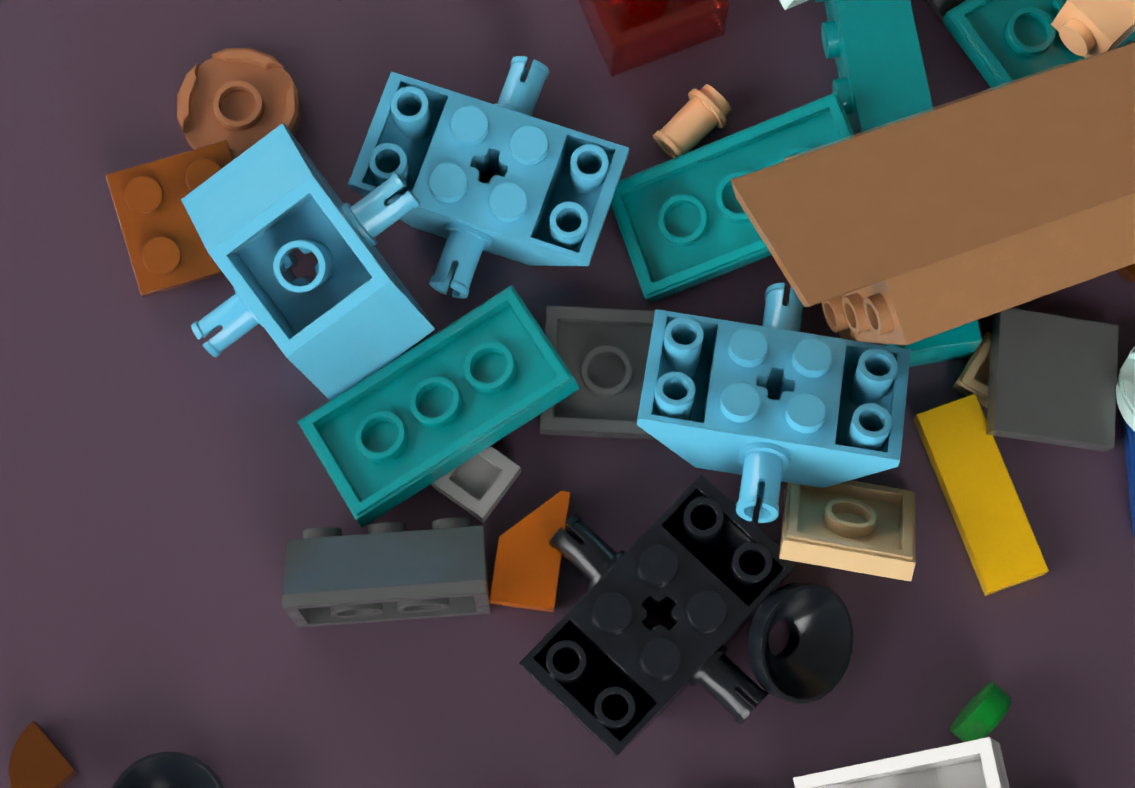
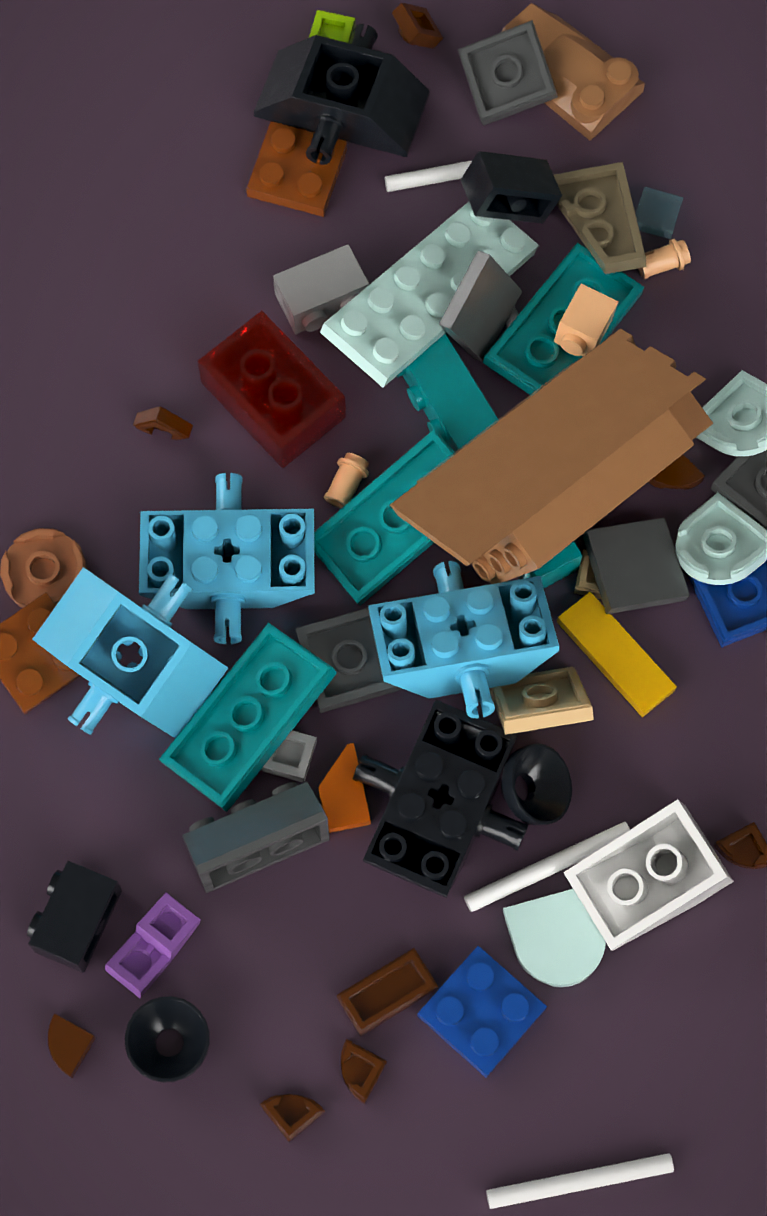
camera: 20 degrees left, 5 degrees down
(105, 598) = (73, 916): none -> black brick
(198, 674) = (152, 945): none -> medium lavender slope
(773, 759) = (542, 868): none -> white bar
(981, 713) = (667, 789): green tile -> none

